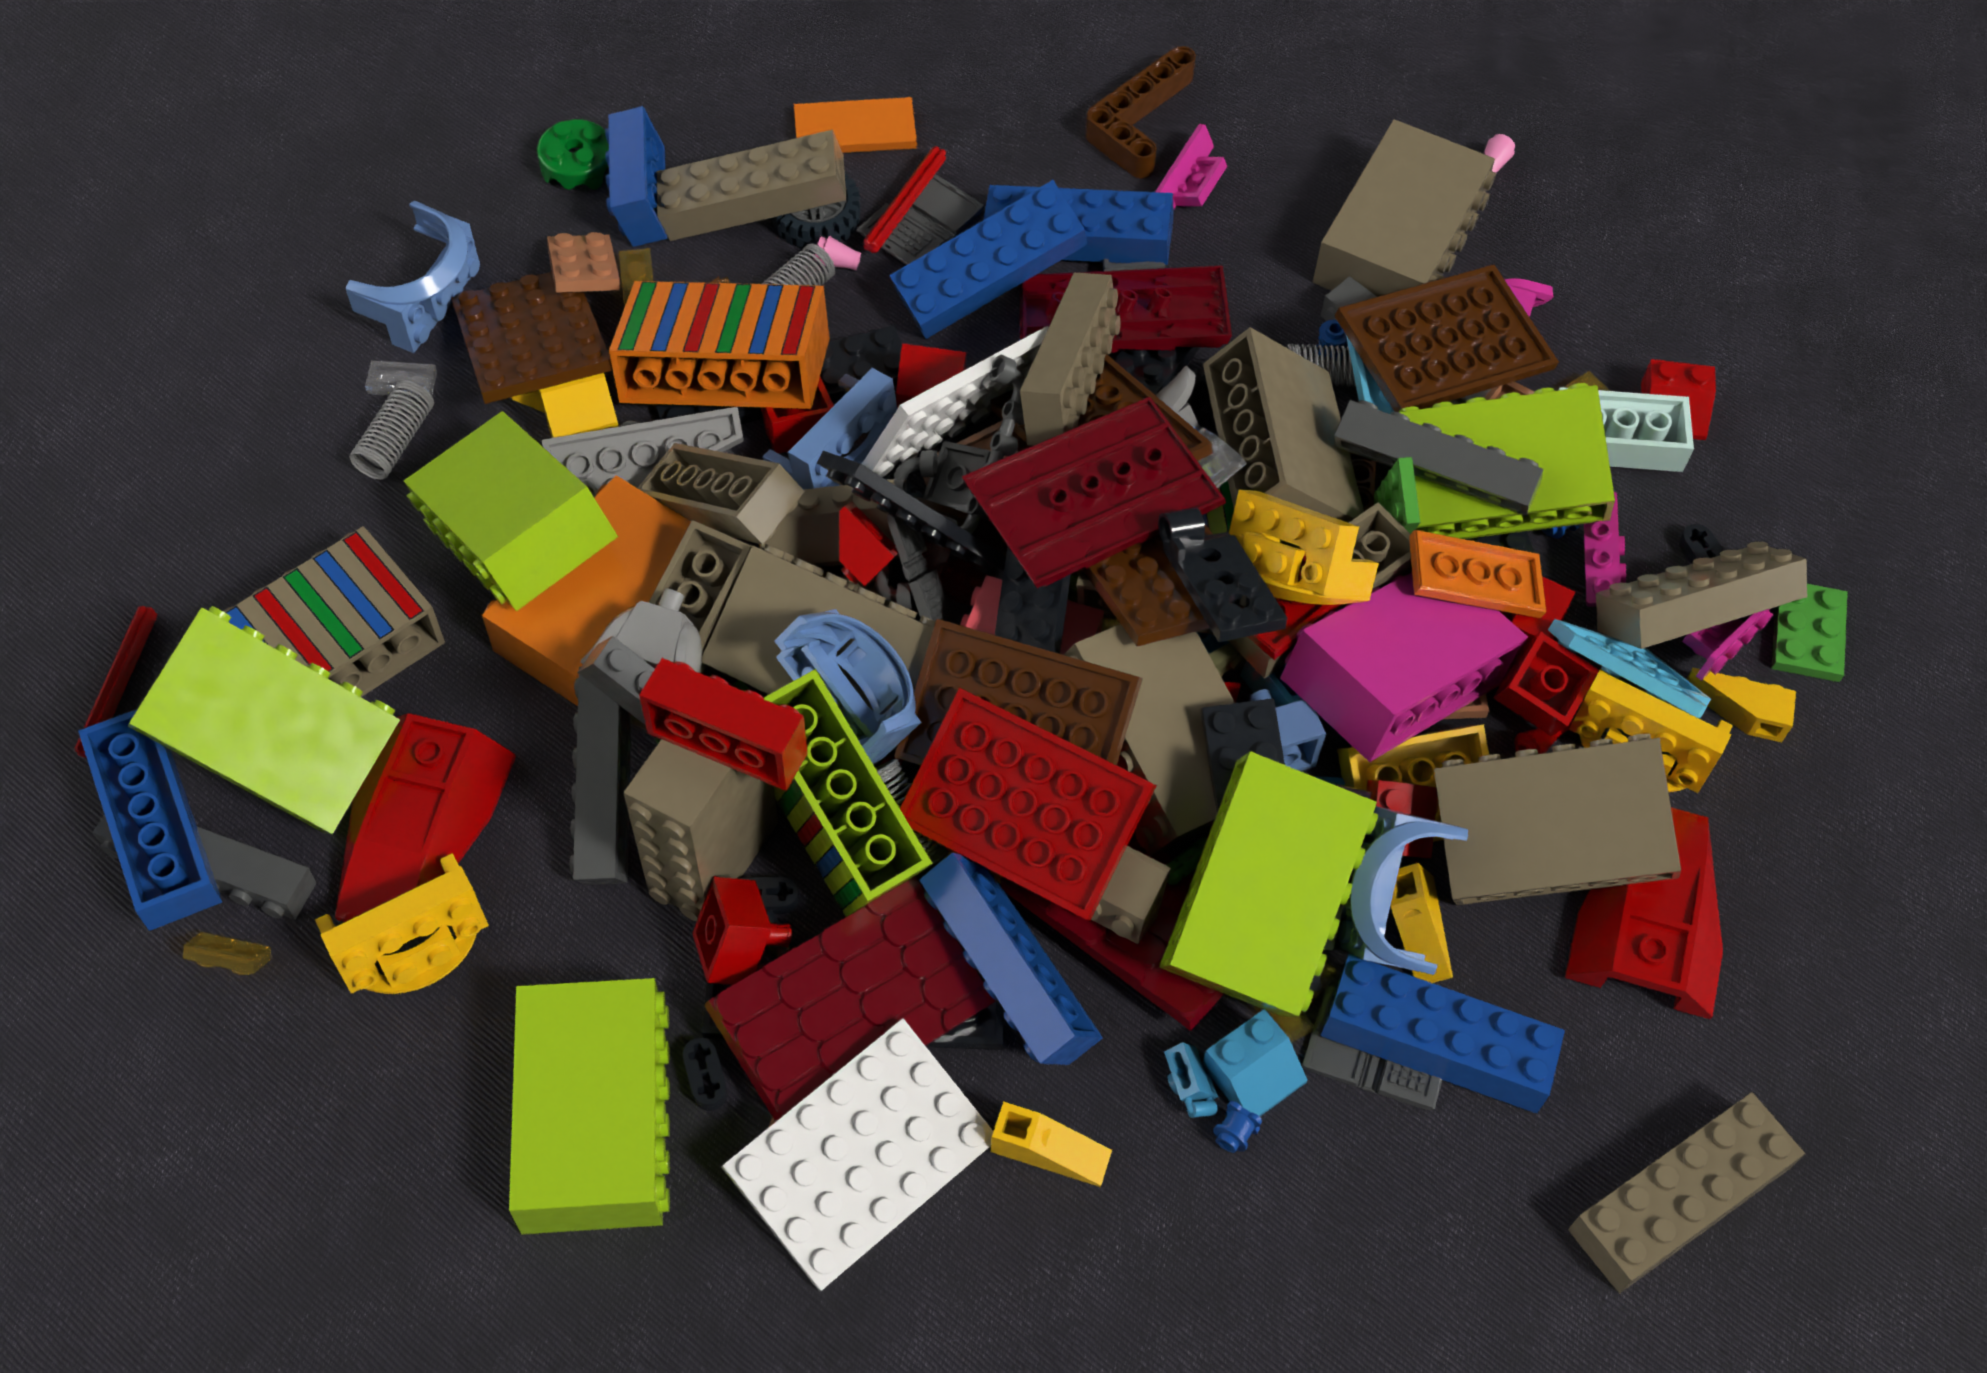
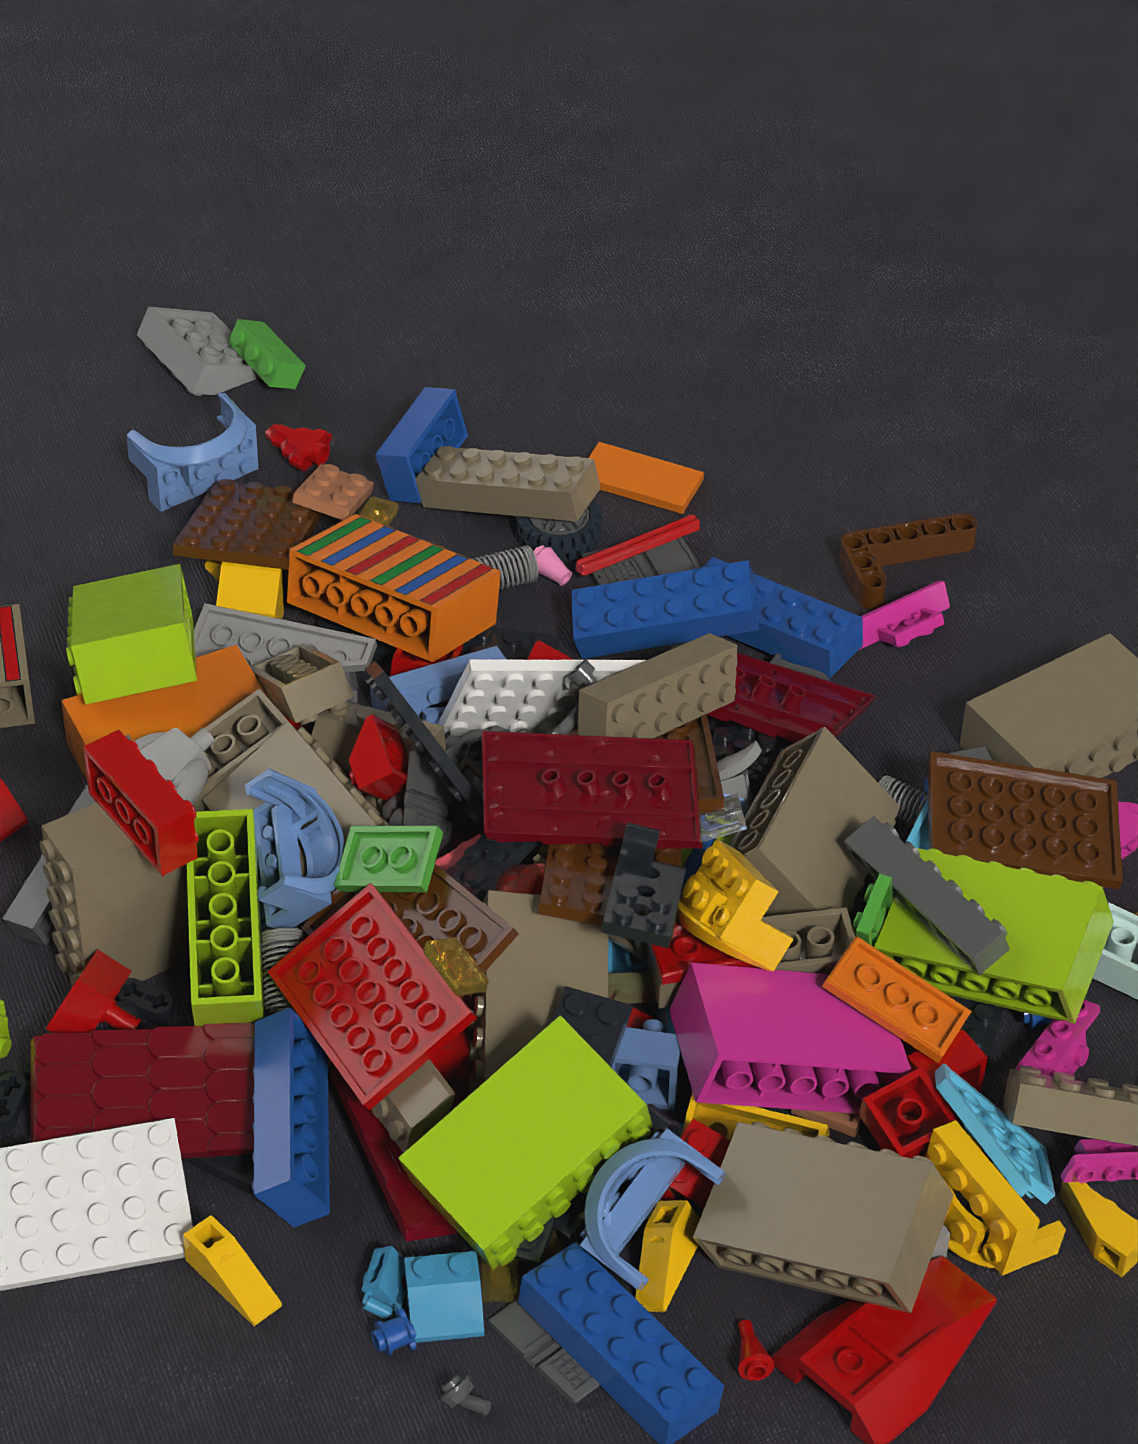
camera: 30 degrees right, 15 degrees down
(336, 159) = (195, 349): none -> light grey slope
(385, 375) = (134, 524): clear plate -> none
(404, 403) = (125, 539): light grey piece -> none
(411, 137) = (266, 354): none -> bright green brick
(509, 223) = (300, 445): none -> red rock
(570, 168) = (382, 408): green plate -> none
(960, 653) = (389, 858): none -> bright green plate
(1084, 616) = (522, 879): none -> clear red brick
(1107, 741) = (456, 966): none -> clear yellow plate
(1327, 1157) = (457, 1391): none -> dark grey plate
(1555, 983) = (753, 1358): none -> red cone

